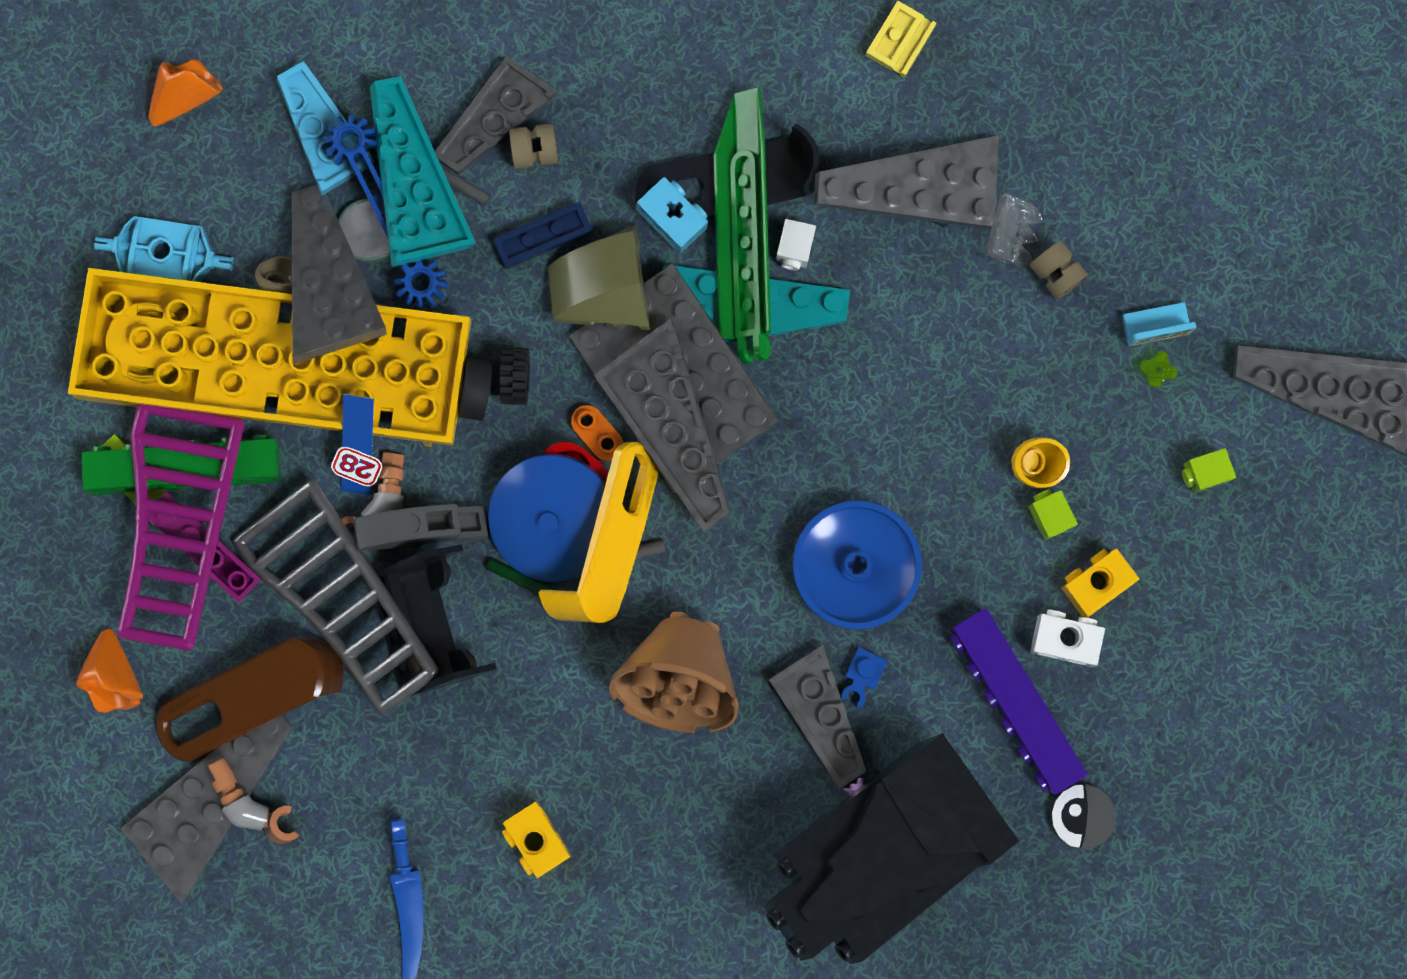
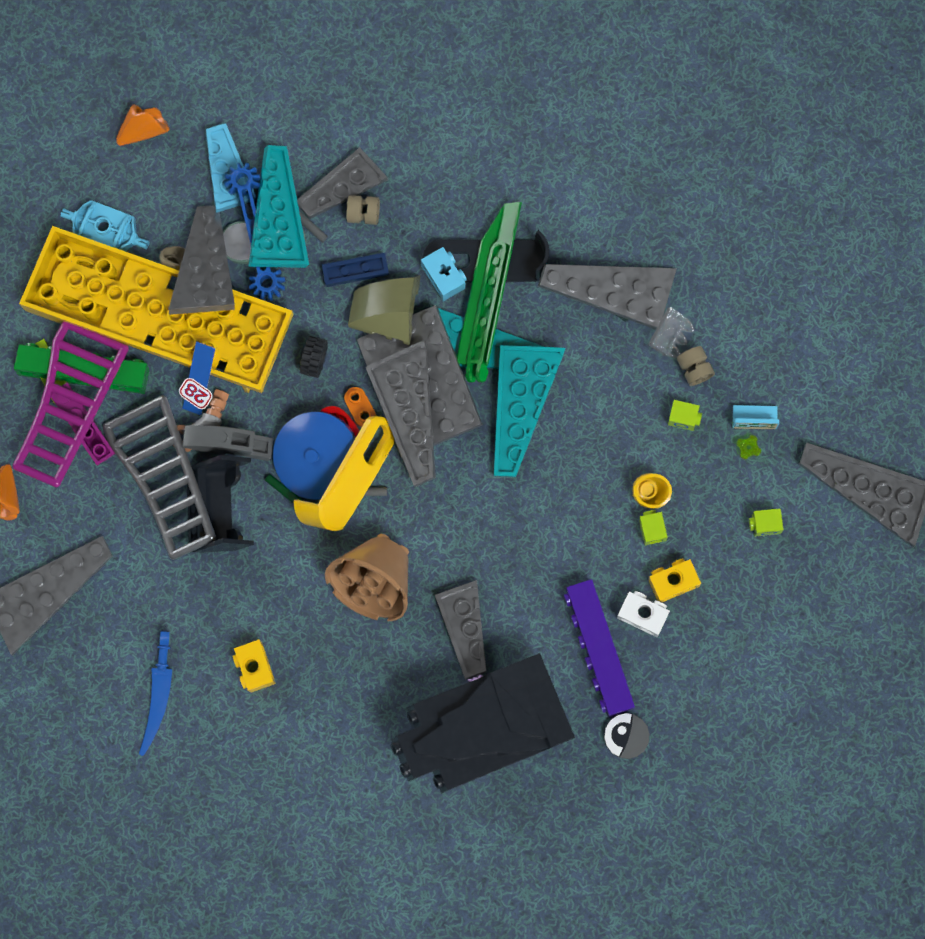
camera: 25 degrees right, 5 degrees down
(243, 810) = (67, 603): piece -> none
(254, 693) = (92, 526): reddish brown piece -> none
(475, 389) = (284, 359): black tyre -> none
(795, 244) = (522, 311): white brick -> none
(824, 358) = (522, 391): none -> teal wing
(857, 565) = (512, 532): blue dish -> none
(865, 672) = (501, 605): blue plate -> none
(900, 39) = (625, 191): light yellow plate -> none
(1059, 344) = (684, 415): none -> lime brick

